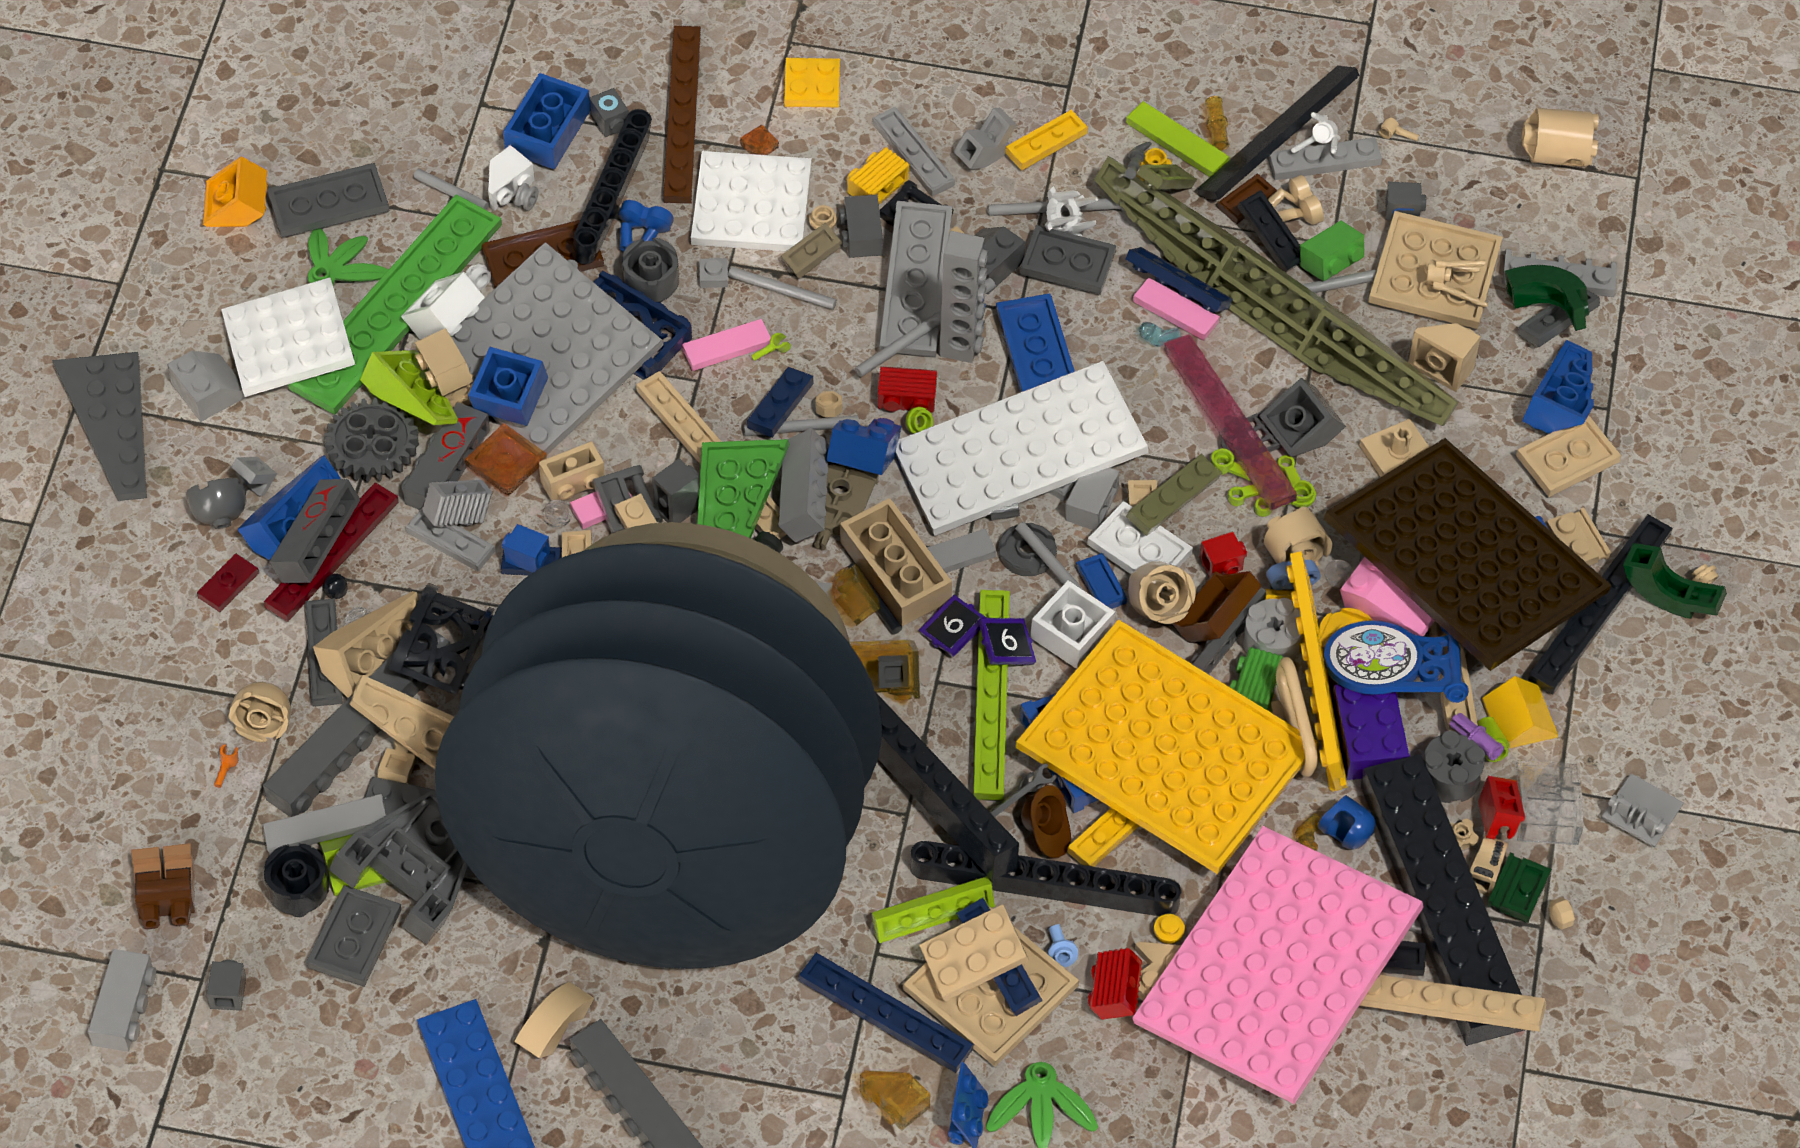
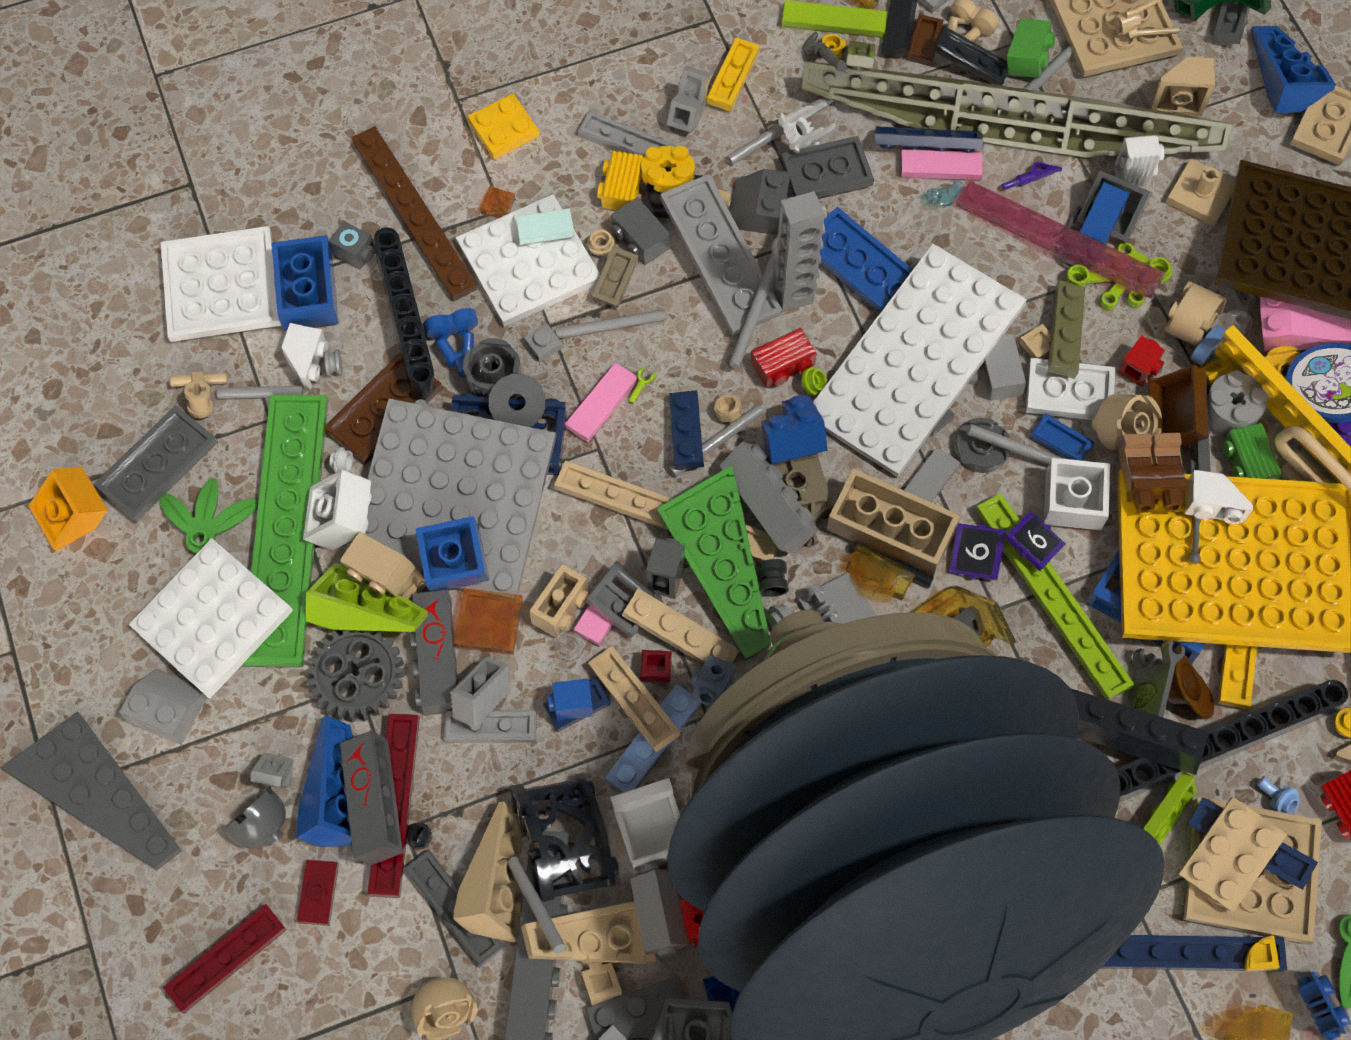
camera: 30 degrees left, 10 degrees up
(124, 587) = (224, 959): none -> dark red plate
(382, 669) = (536, 905): none -> light grey bar
(398, 160) = (198, 391): none -> tan piece
(475, 86) = (219, 284): none -> white plate
(665, 296) = (517, 384): none -> dark grey tile
(781, 178) = (545, 226): none -> light aqua tile
(936, 183) = (676, 158): none -> yellow plate
(941, 1044) = (1262, 956): none -> yellow tile
(1141, 630) = (1153, 470): none -> hips
(1155, 688) = (1194, 557): none -> dark grey hinge
(1175, 678) = (1215, 497): none -> white slope
(1253, 359) = (1032, 175): none -> dark purple hand
(1282, 417) = (1104, 213): none -> blue tile
(1351, 391) = (1139, 159): none -> white brick

